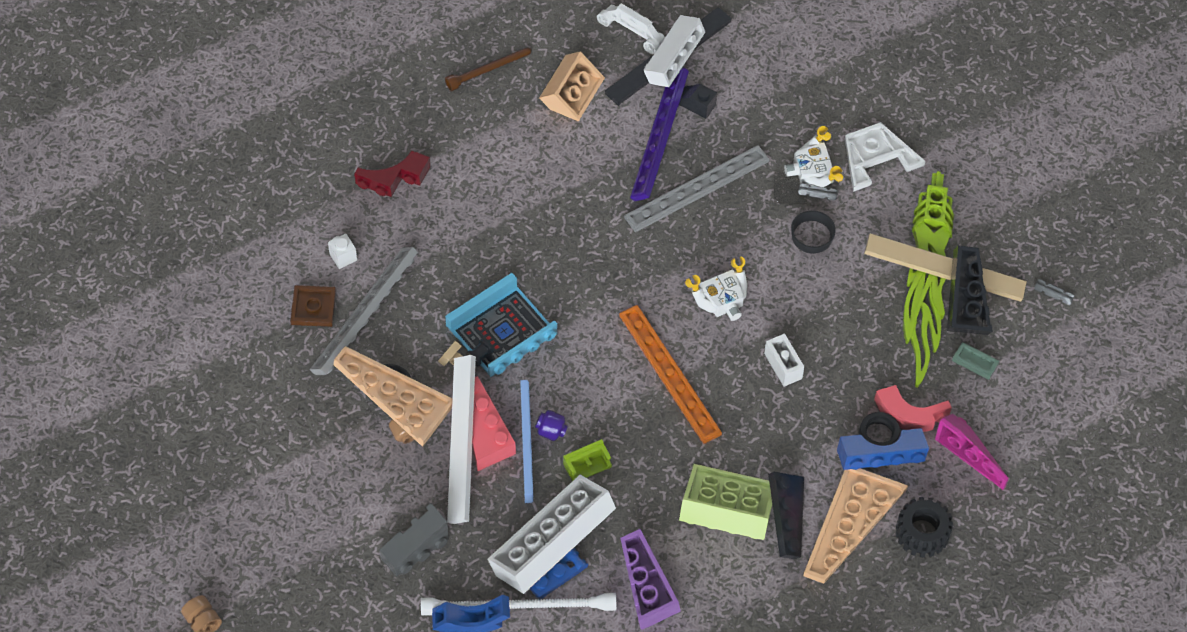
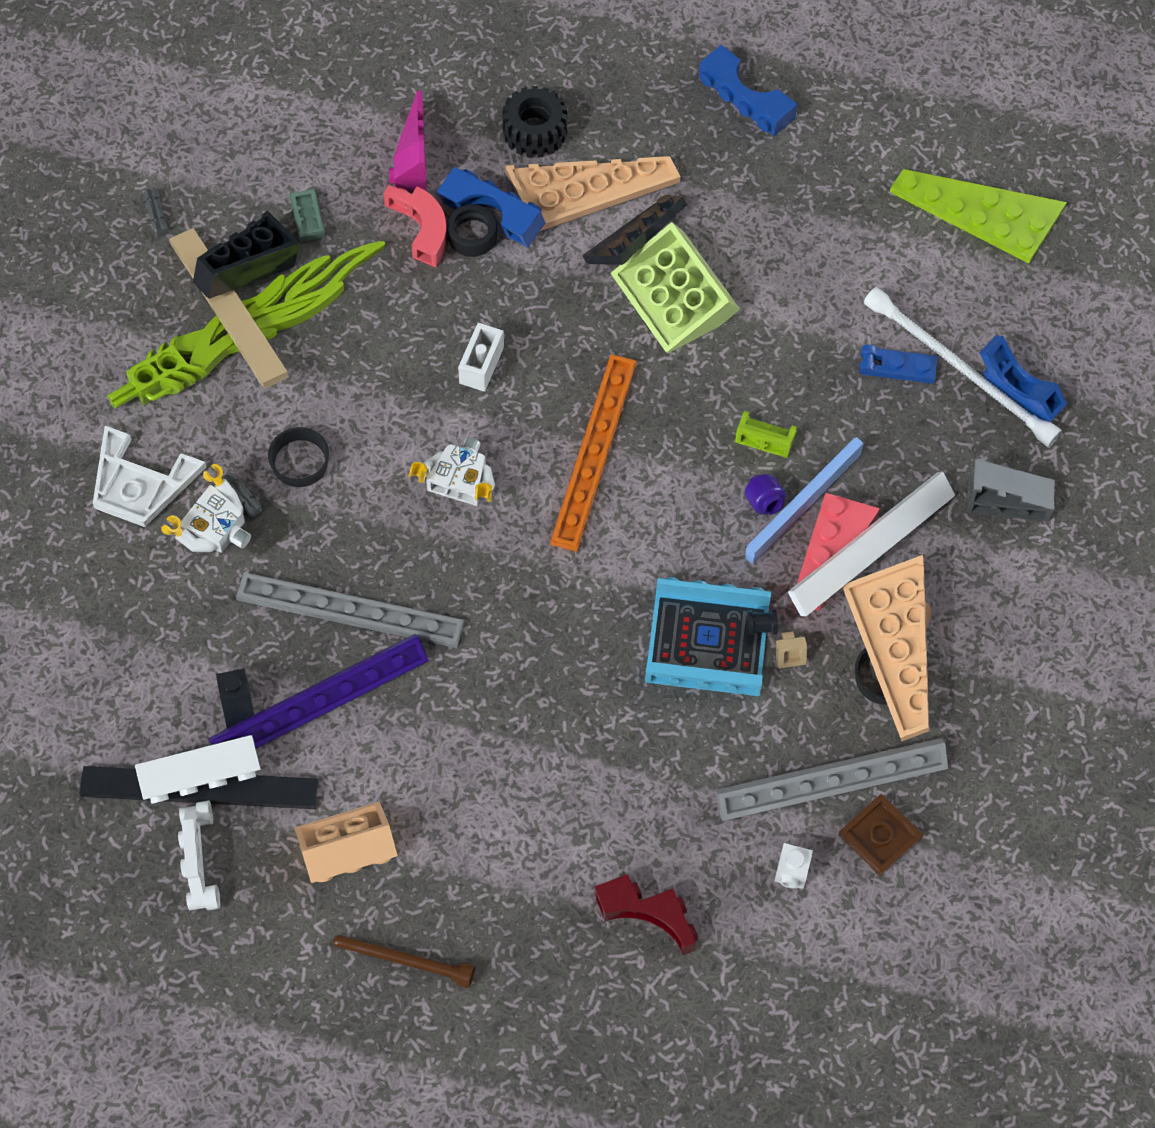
camera: 135 degrees left, 5 degrees up
(551, 533) = (875, 385): white brick -> none
(649, 586) = (832, 274): medium lavender wedge -> none

